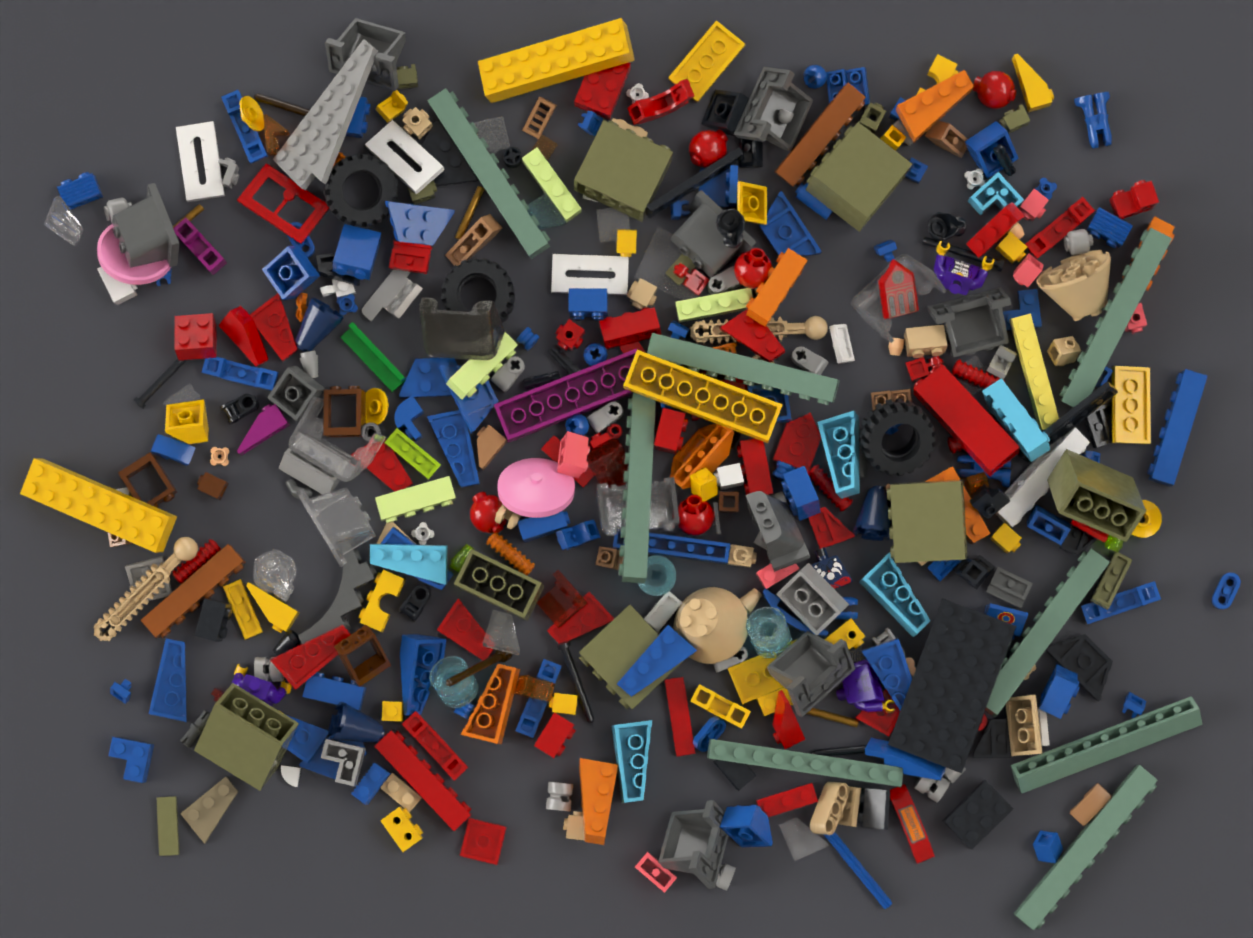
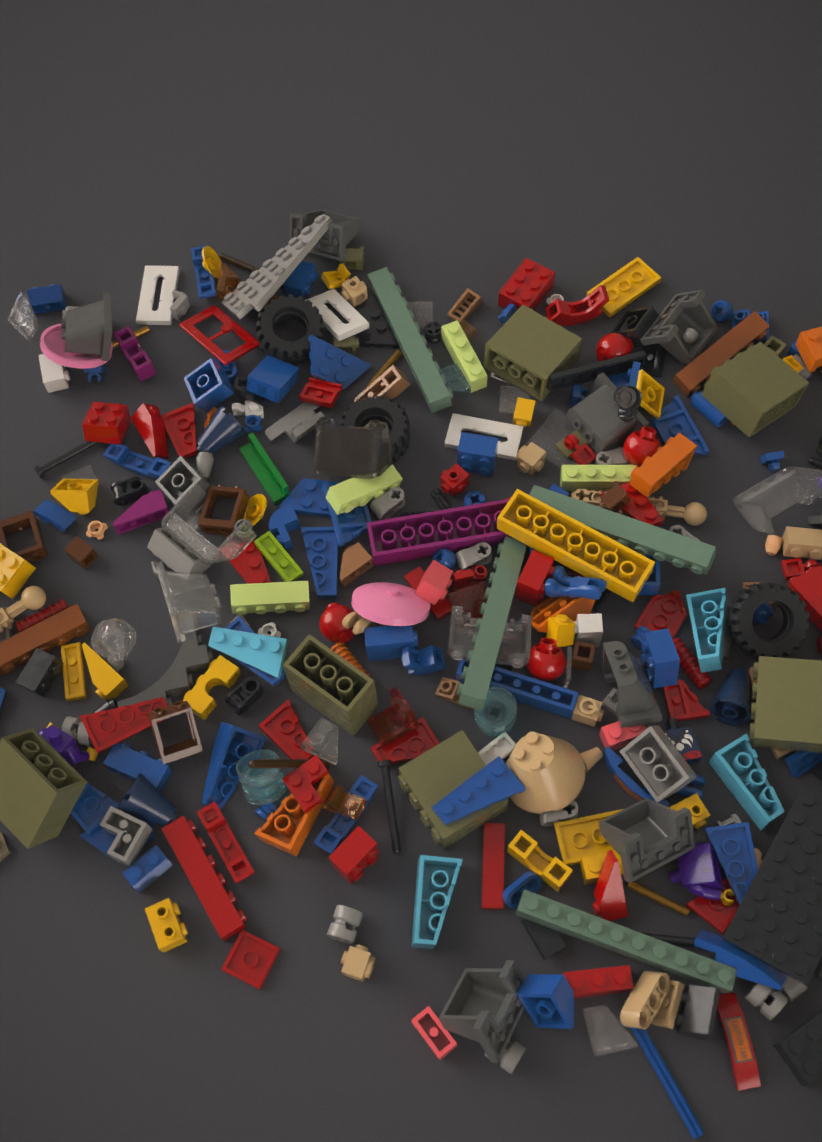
camera: 10 degrees right, 20 degrees down
(291, 775) = (69, 844): white tile -> none
(392, 711) = (190, 798): yellow brick -> none
(401, 792) = (177, 887): tan plate -> none
(492, 680) = (301, 782): none -> red plate
(528, 339) = (413, 478): blue wheel -> none
(556, 60) = (489, 257): yellow brick -> none
(563, 703) = (373, 825): yellow brick -> none
(597, 790) = (387, 927): orange wedge -> none
(629, 327) = (505, 482): red brick -> none
(713, 436) = (564, 585): none -> blue piece
(734, 337) = (614, 498): none -> reddish brown brick
(755, 466) = (615, 622): red brick -> none
(768, 632) = (605, 789): clear light blue wheel -> none
(841, 343) = (718, 533): white plate -> none
(897, 291) = (781, 493): red tile -> none
(916, 170) = (808, 401): blue tile -> none

